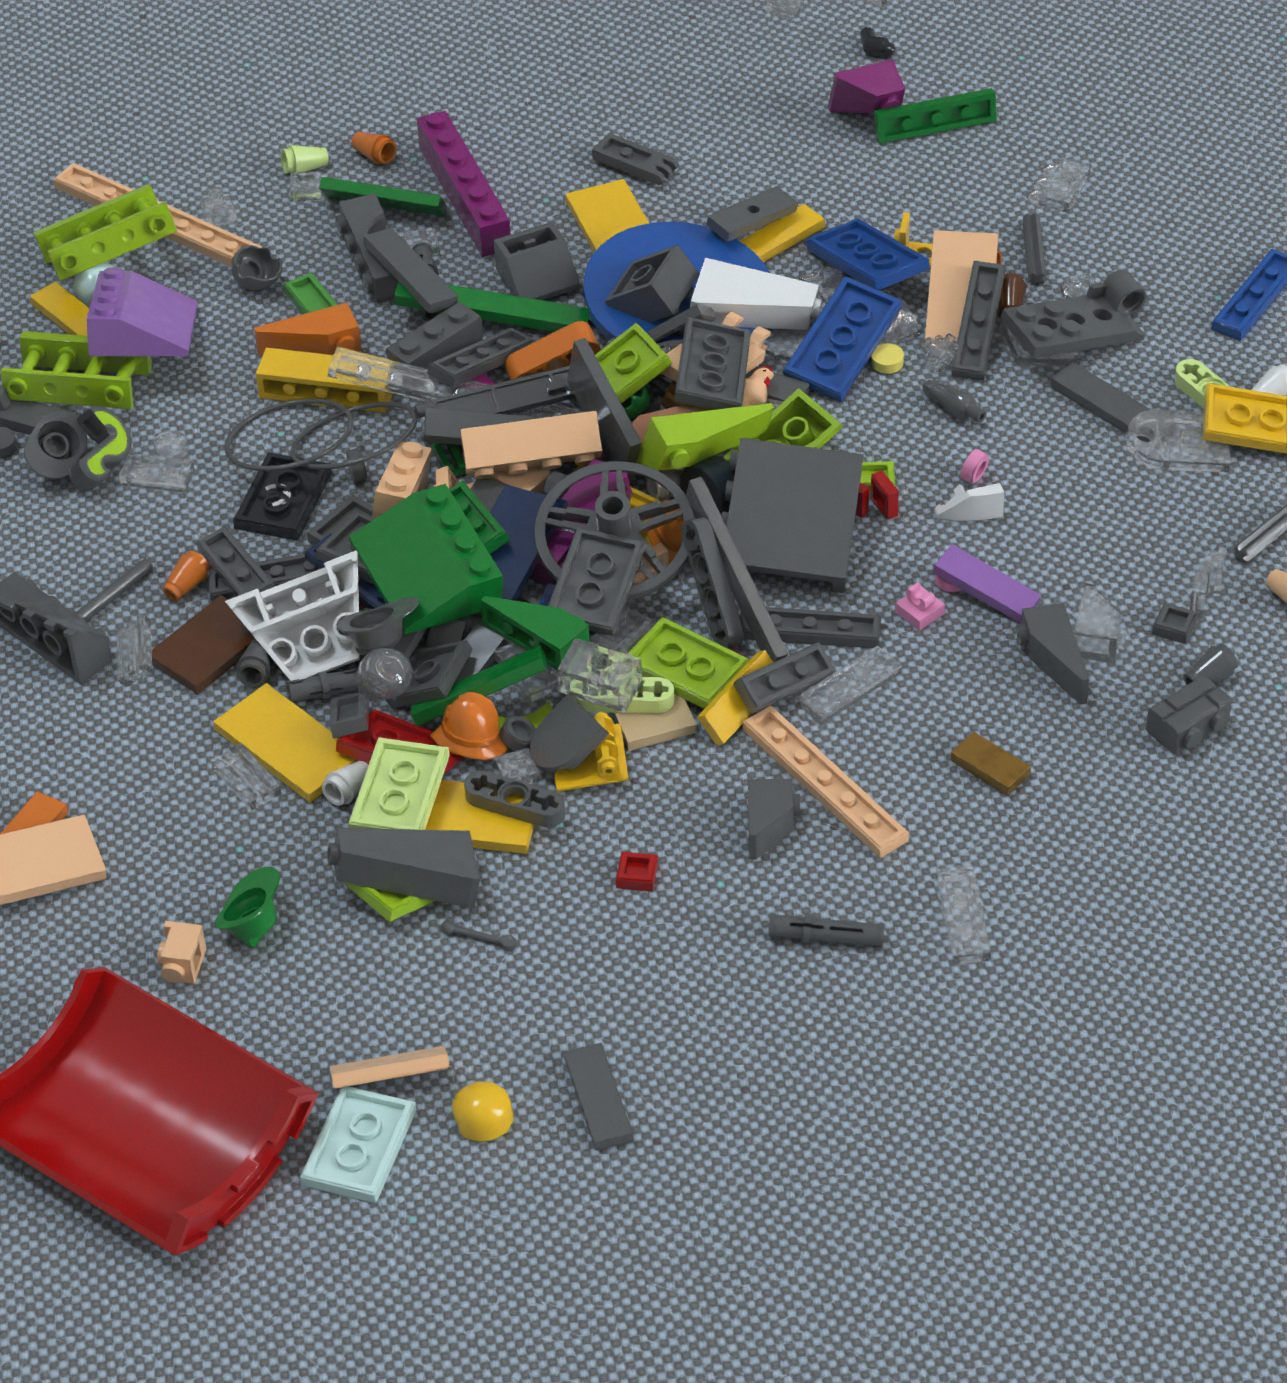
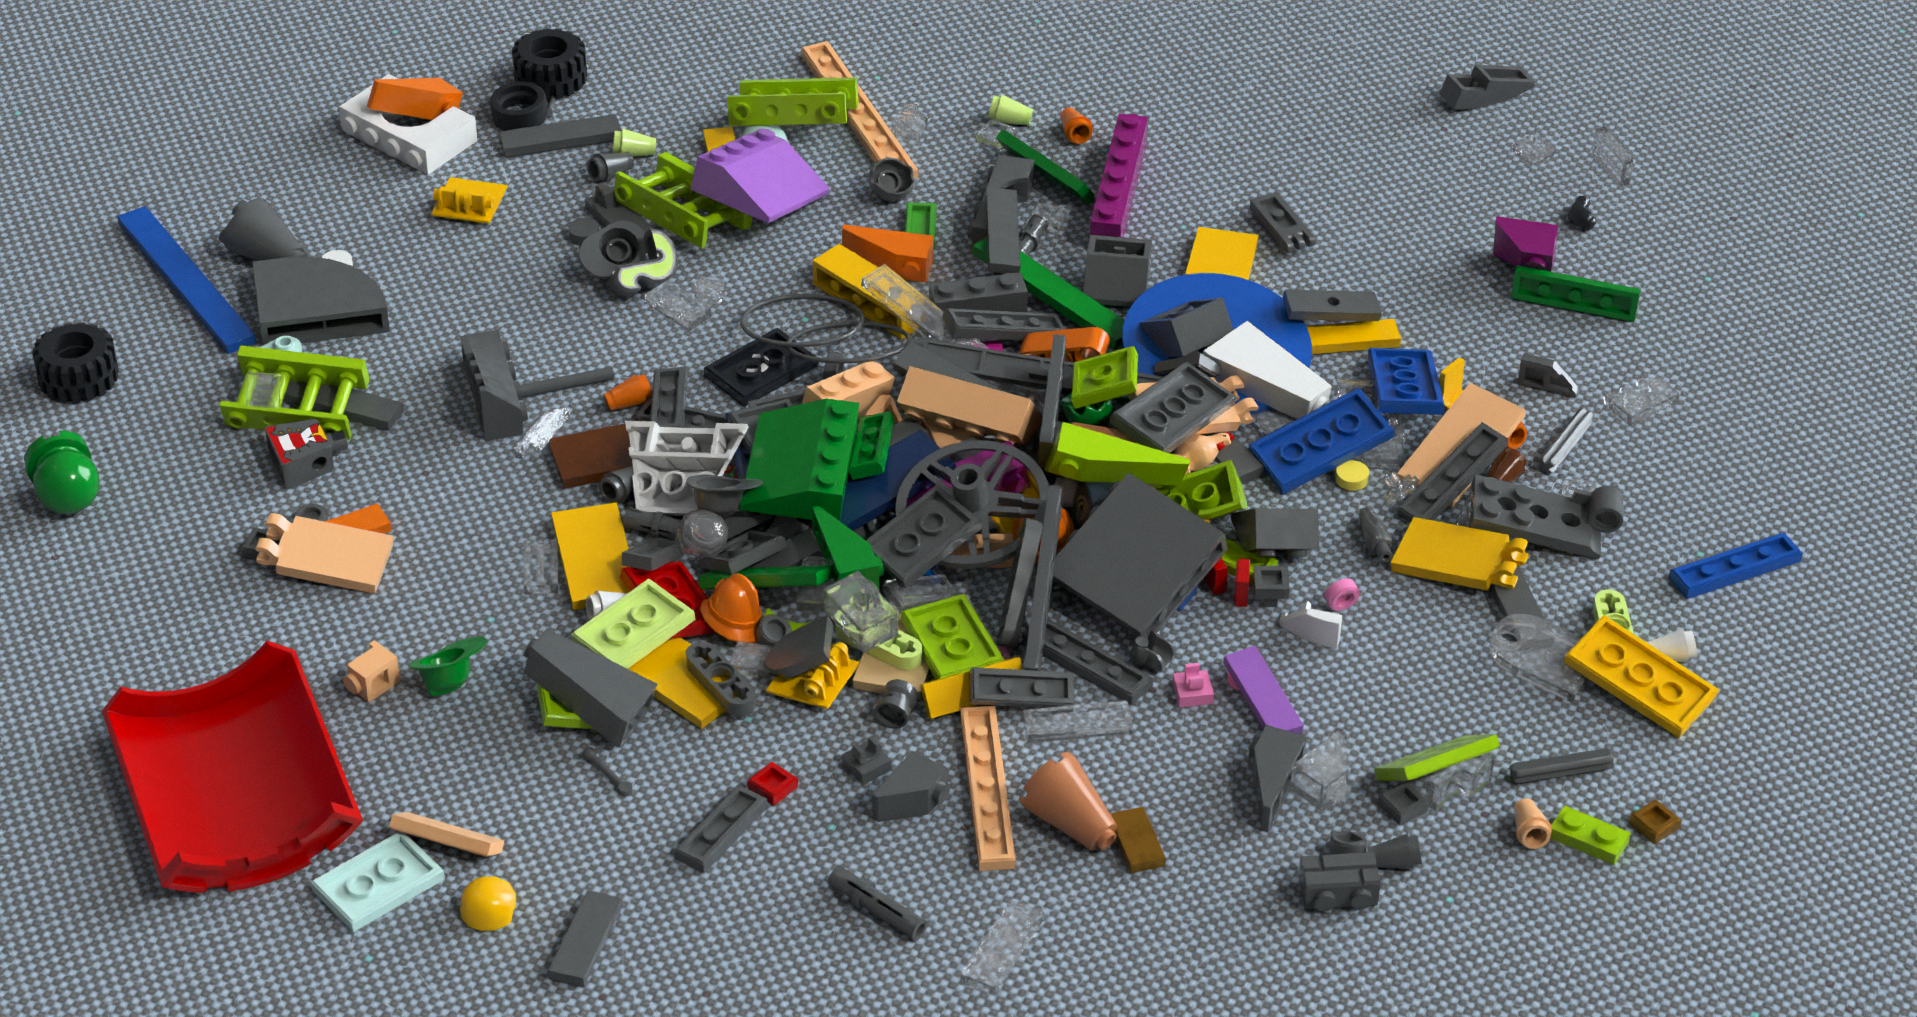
camera: 30 degrees right, 5 degrees down
(628, 935) = (720, 829): none -> dark grey tile
(686, 745) = (896, 704): none -> dark grey wheel
(702, 809) = (866, 761): none -> dark grey tile
(861, 592) = (1152, 651): none -> dark grey arm
(880, 434) = (1277, 530): none -> dark grey slope
(912, 484) = (1271, 584): none -> dark grey tile
(922, 759) = (1069, 802): none -> nougat cone
(971, 198) = (1545, 375): none -> dark grey tile
(1040, 386) = (1459, 555): none -> yellow tile
(1166, 680) = (1347, 842): none -> dark grey tile
(1179, 569) = (1437, 757): none -> lime tile

